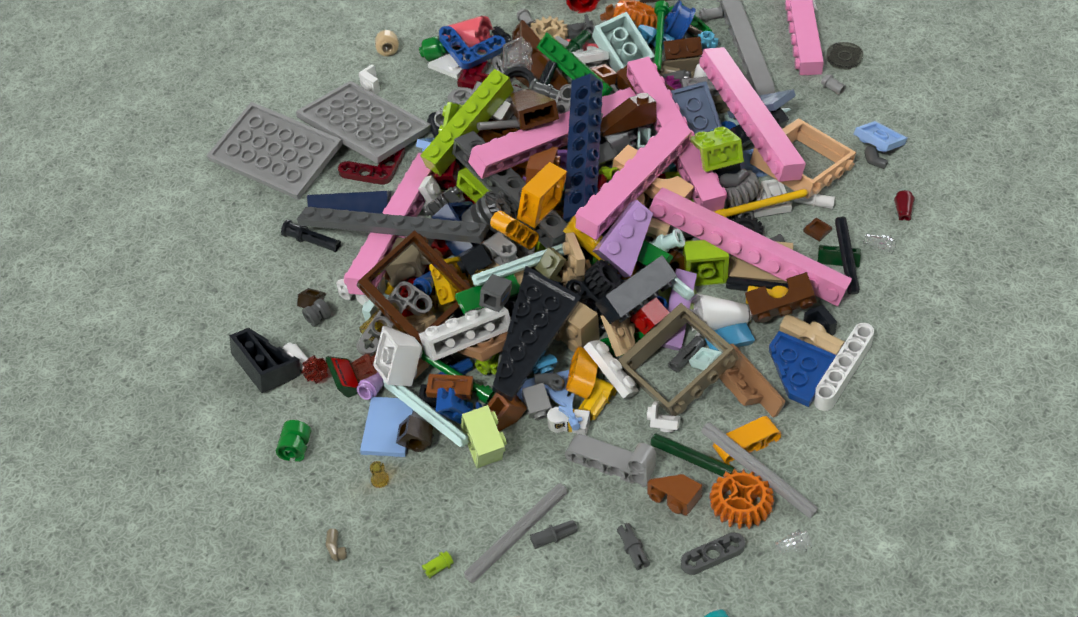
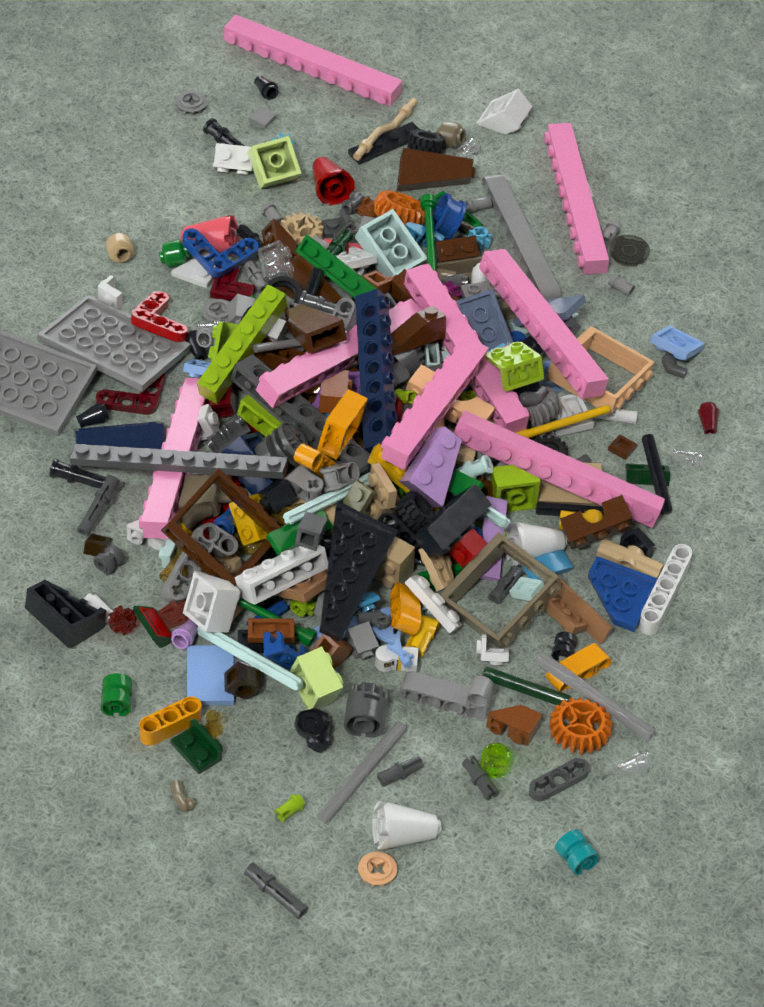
camera: 15 degrees left, 0 degrees up
(322, 255) = (109, 485): none -> dark grey pin
(333, 183) = (94, 415): none -> black cone
(338, 469) = (169, 720): none -> light orange beam
(360, 497) = (198, 747): none -> dark green bracket
(400, 101) = (148, 317): none -> red beam
(473, 480) = (311, 723): none -> black hair
(527, 470) = (365, 710): none -> dark grey gear
(534, 242) = (339, 475): none -> light grey piece
(545, 592) = (402, 825): none -> white cone
(595, 12) = (352, 203): none -> dark grey pin
(649, 529) = (495, 759): none -> clear neon green head
(736, 416) = (564, 645): none -> black wheel
(830, 37) = (611, 231): none -> light grey pin

